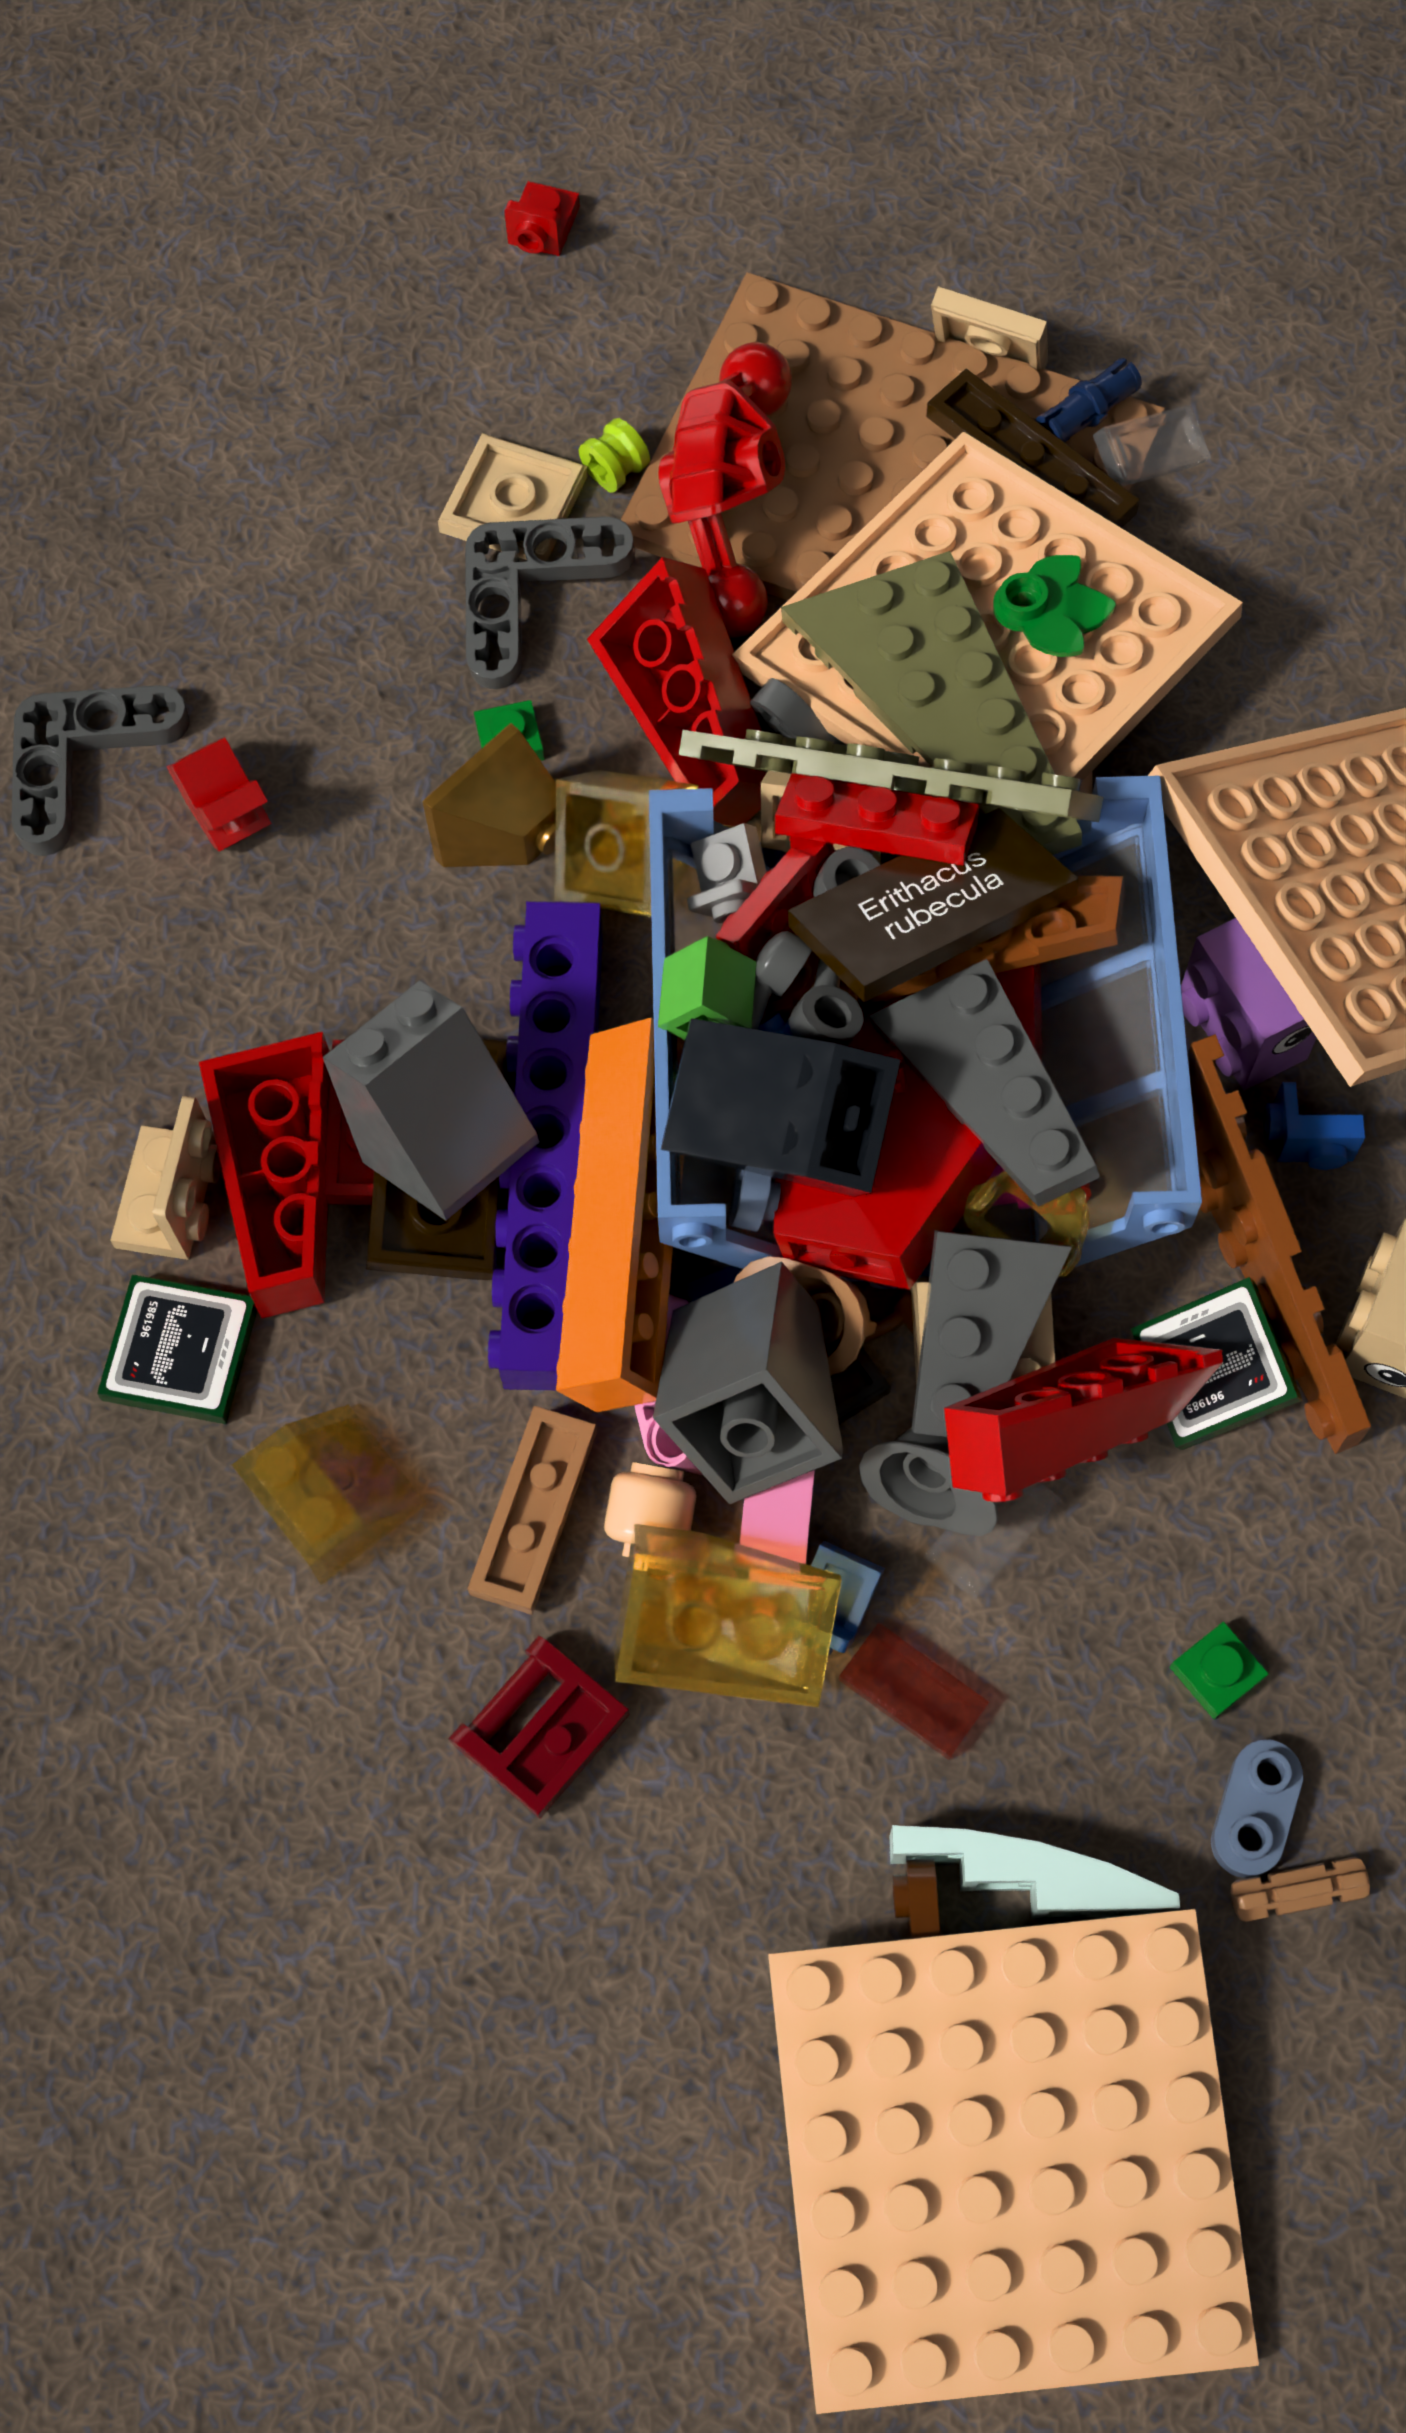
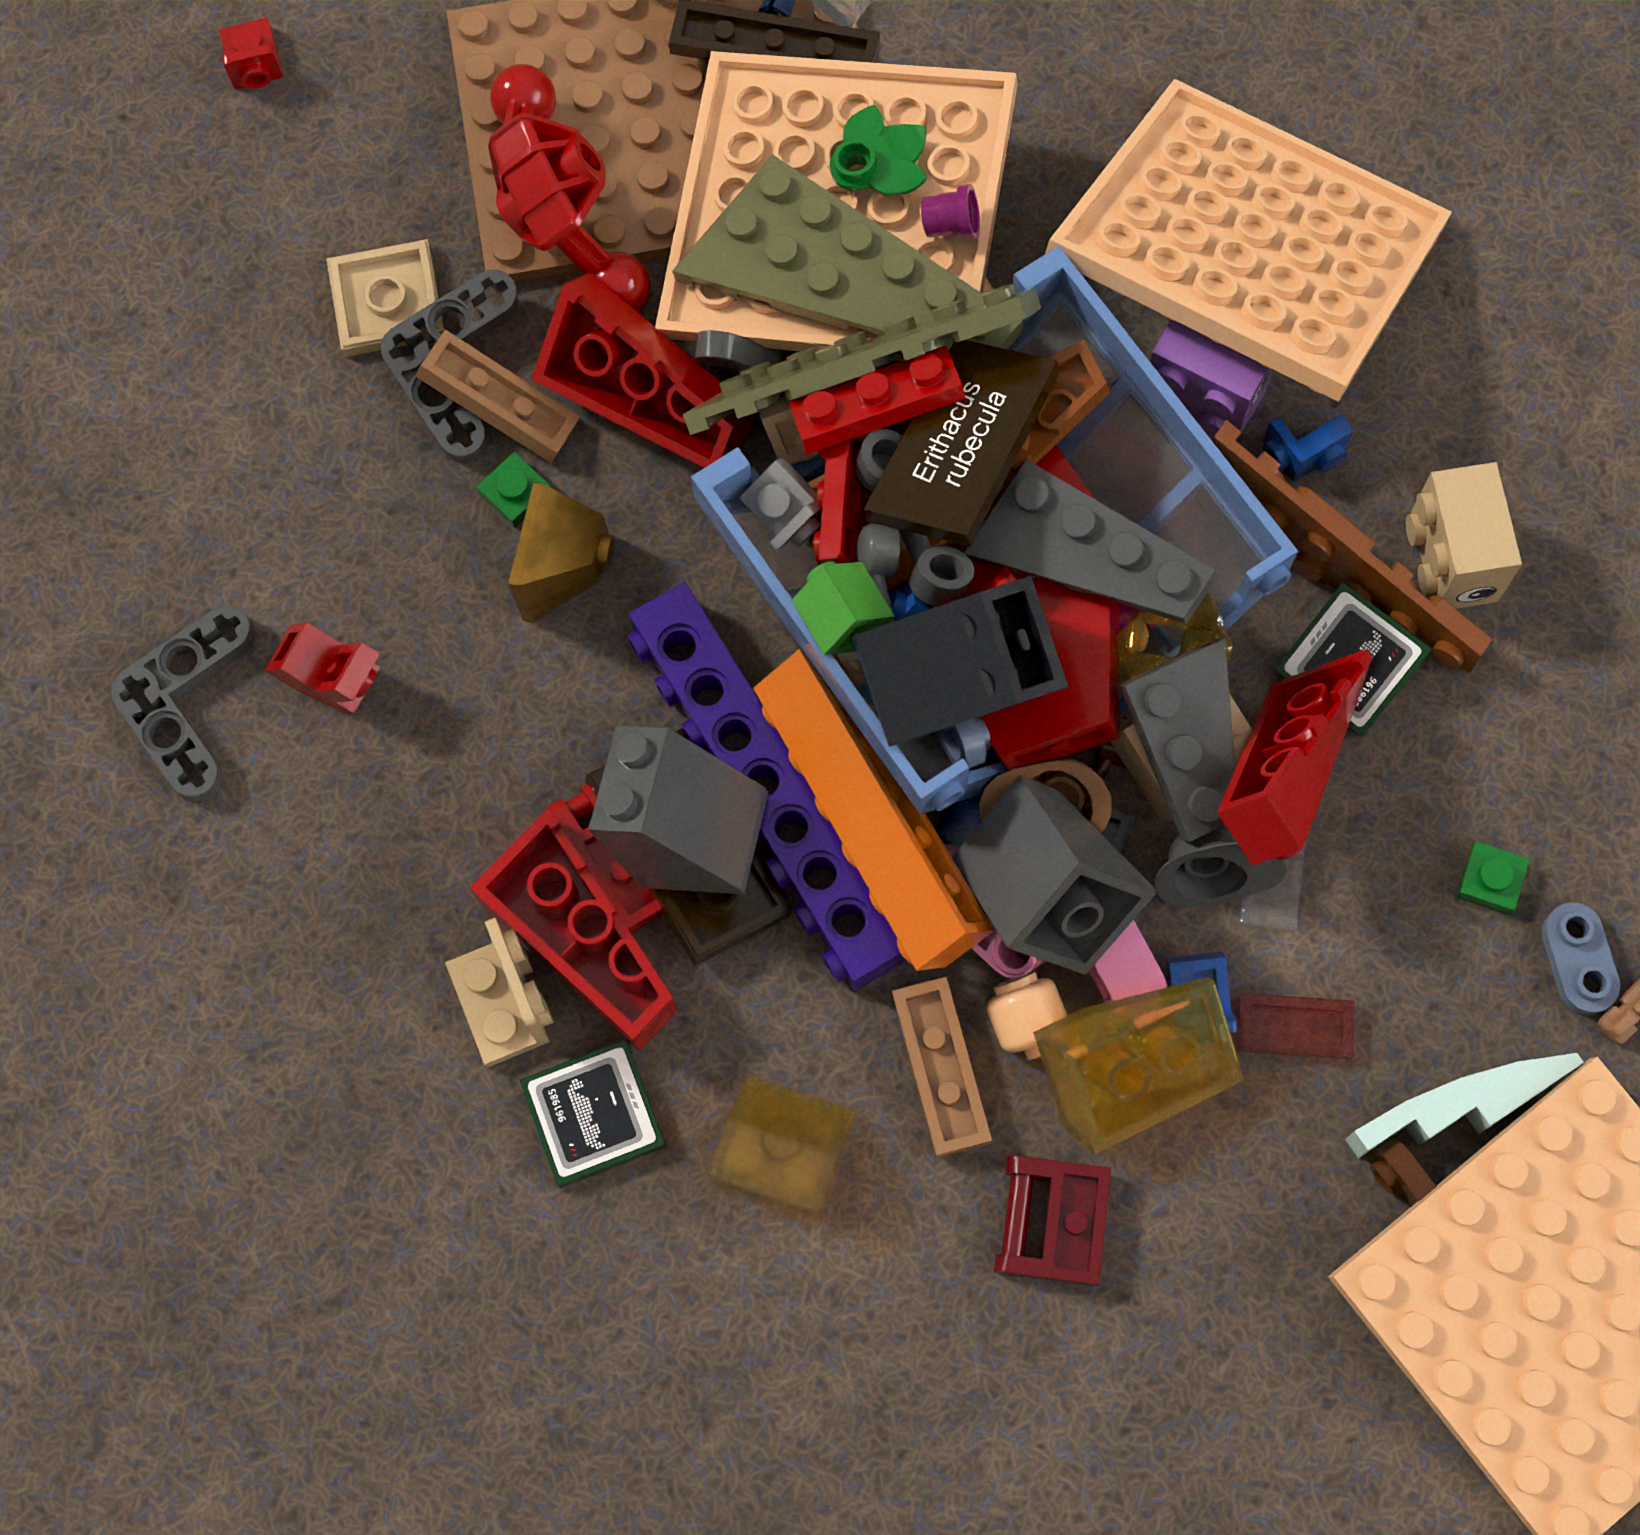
camera: 30 degrees left, 5 degrees up
(546, 637) = (497, 396): none -> medium nougat plate
(605, 839) = (659, 525): clear yellow slope -> none
(614, 455) = (445, 218): lime wheel -> none
(1083, 696) = (952, 213): none -> magenta piece

